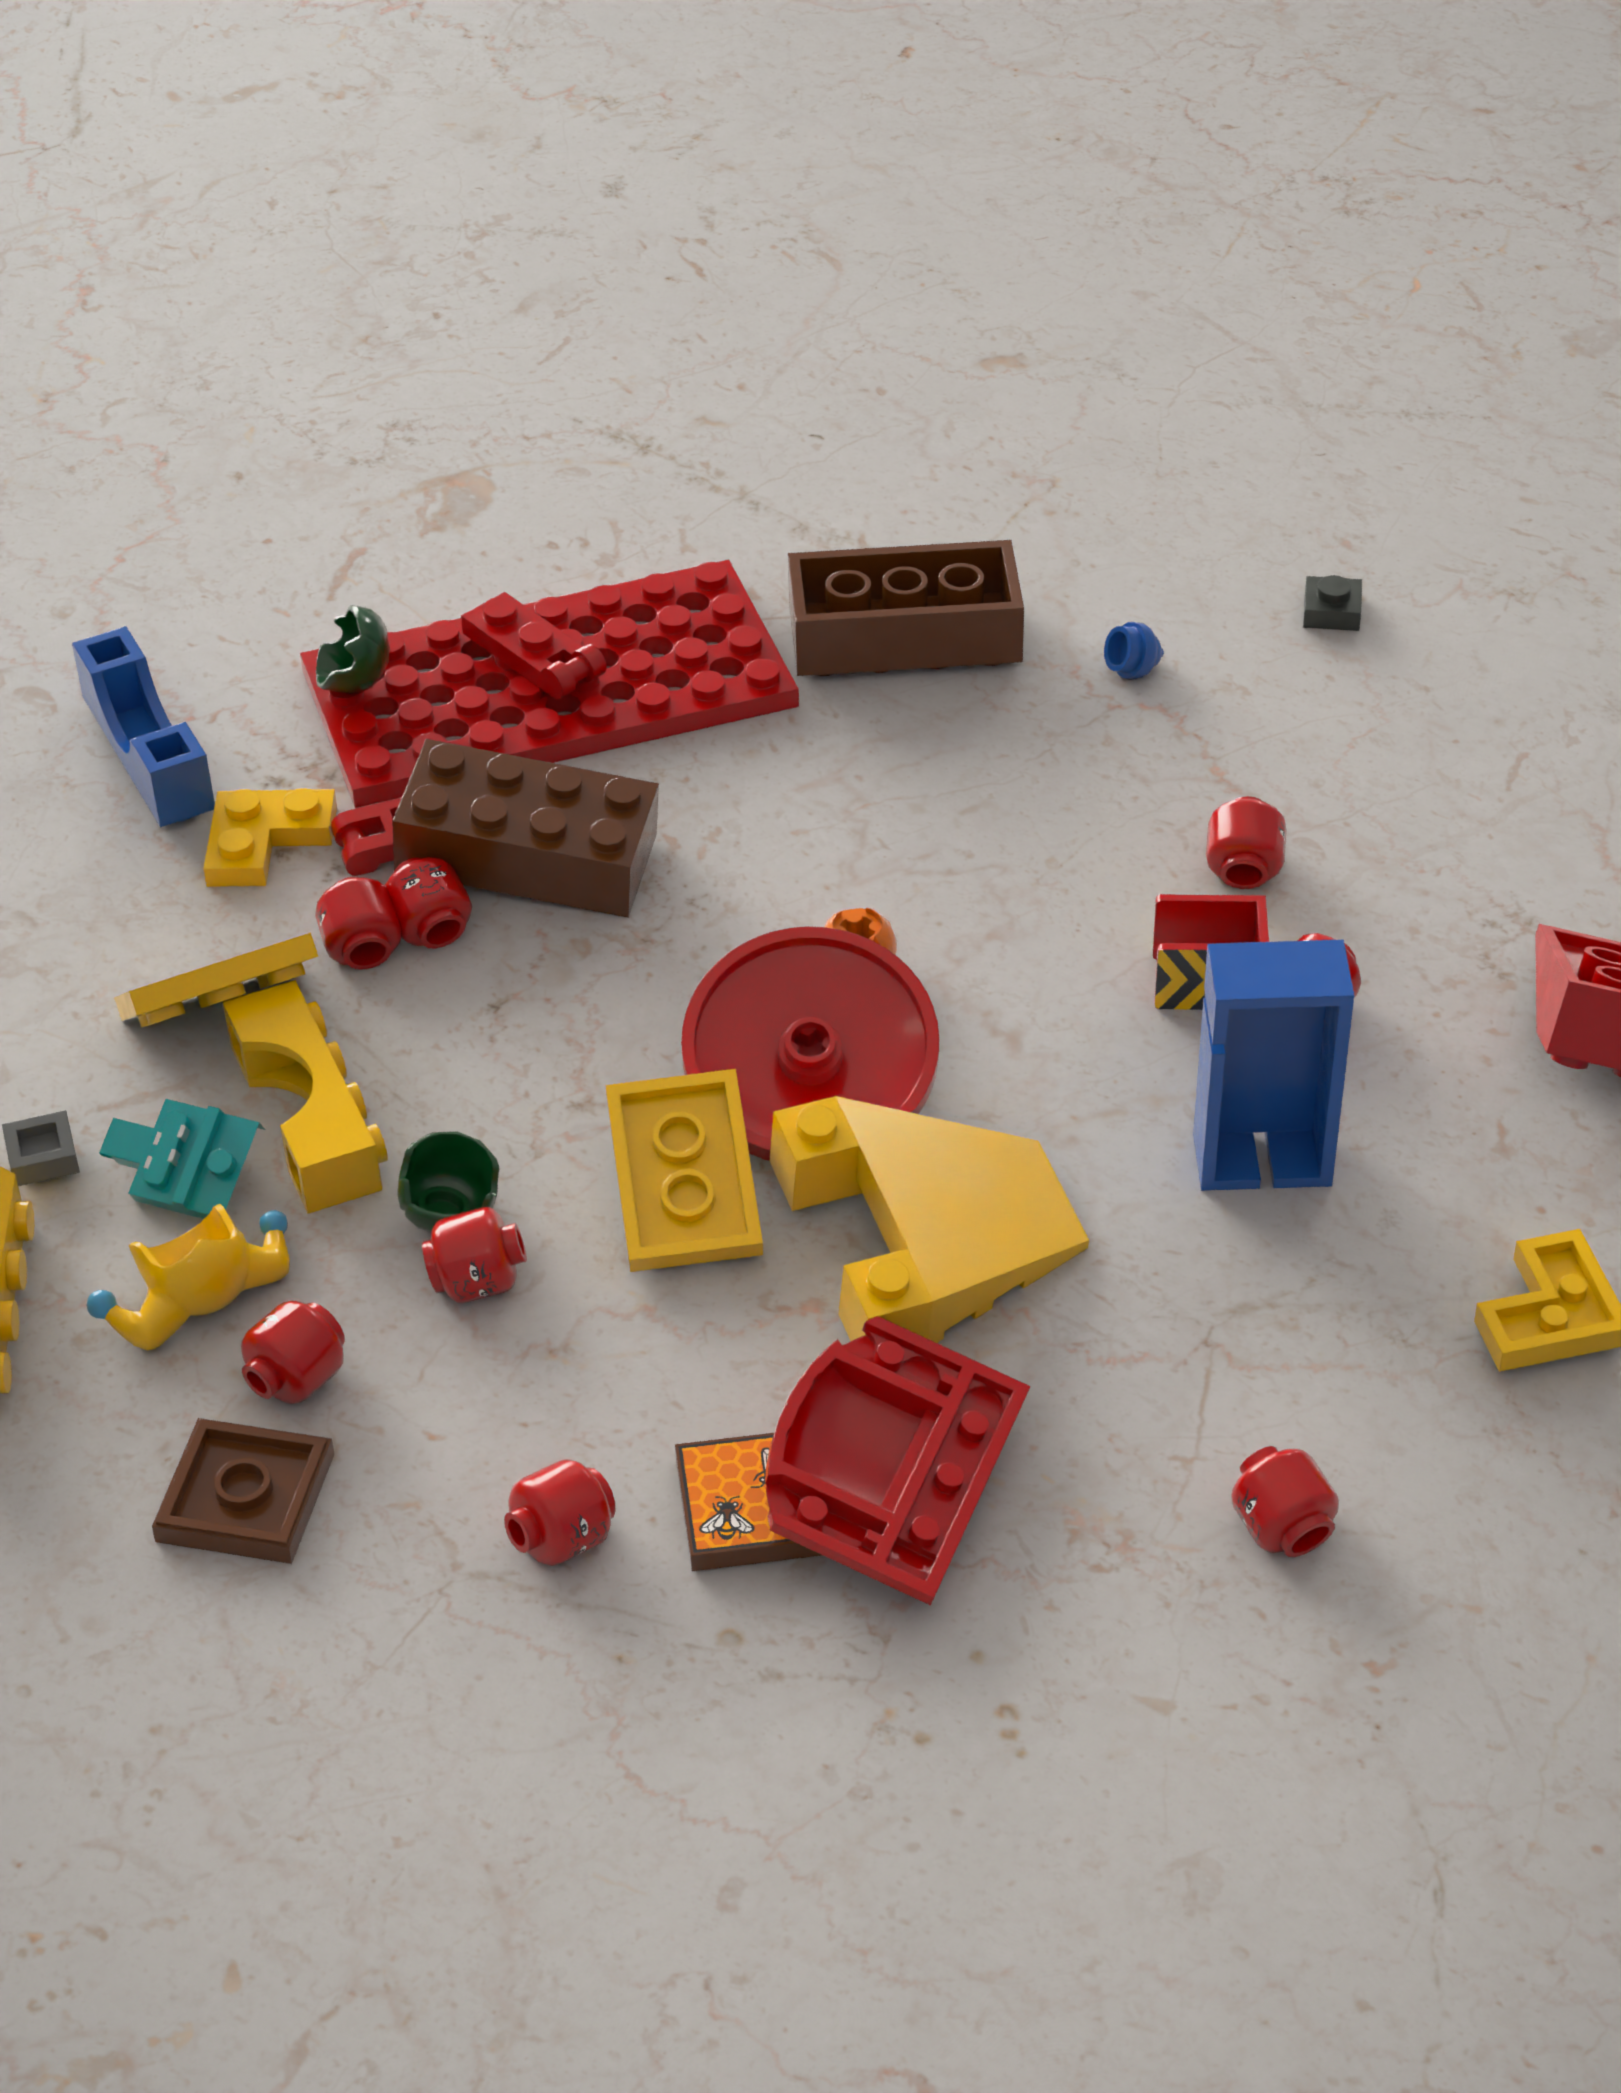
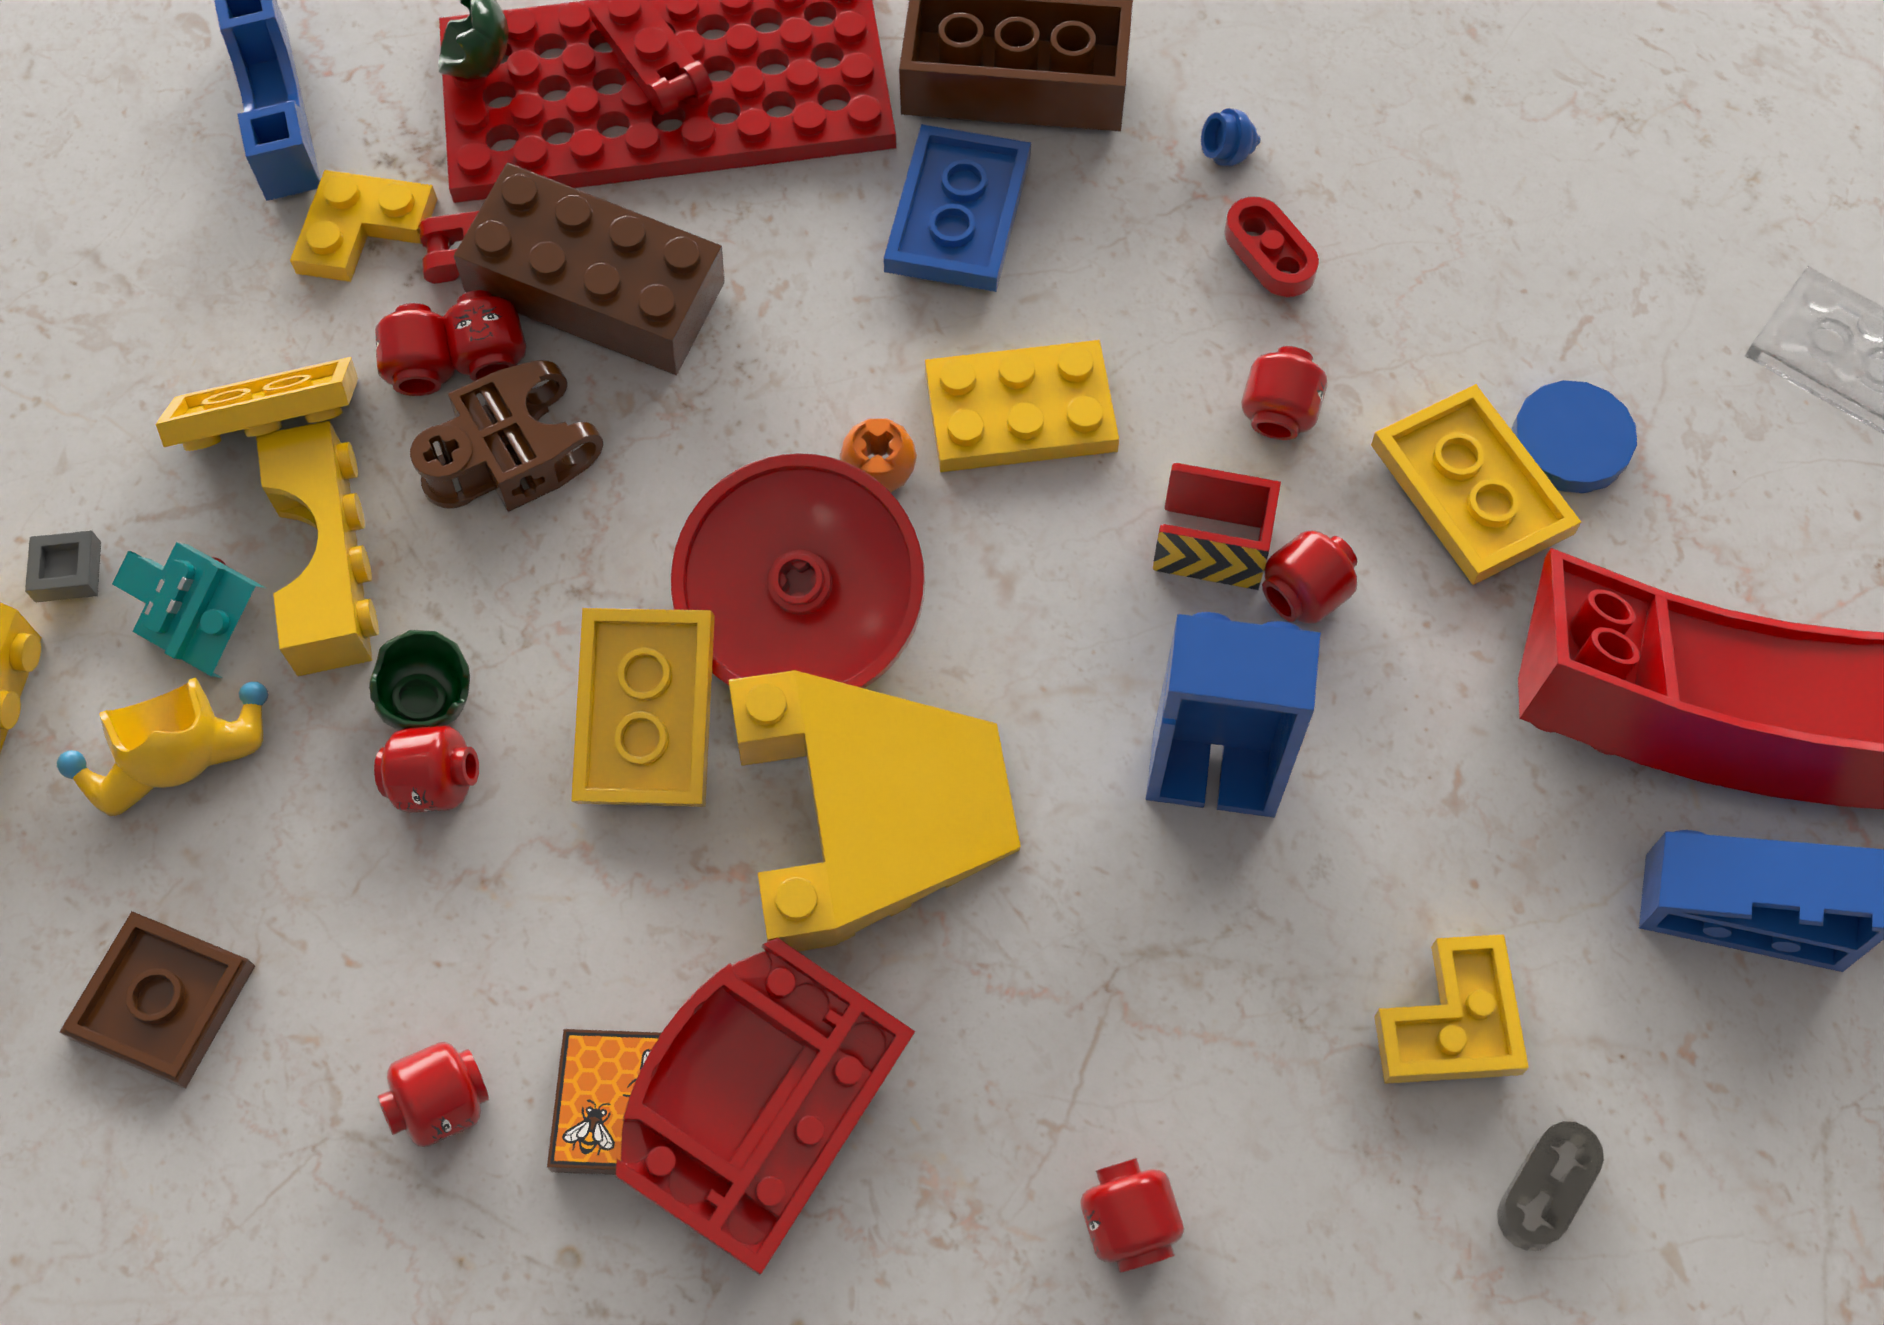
camera: 10 degrees right, 20 degrees up
(292, 1351) = (228, 857): red head -> none
(473, 985) = (527, 450): none -> reddish brown piece
(878, 740) = (957, 208): none -> blue plate
(986, 892) = (1021, 406): none -> yellow plate
(1199, 731) = (1275, 249): none -> red plate
(1332, 603) = (1440, 106): pearl dark grey plate -> none
(1451, 890) = (1475, 484): none -> yellow plate
(1536, 844) = (1577, 435): none -> blue tile

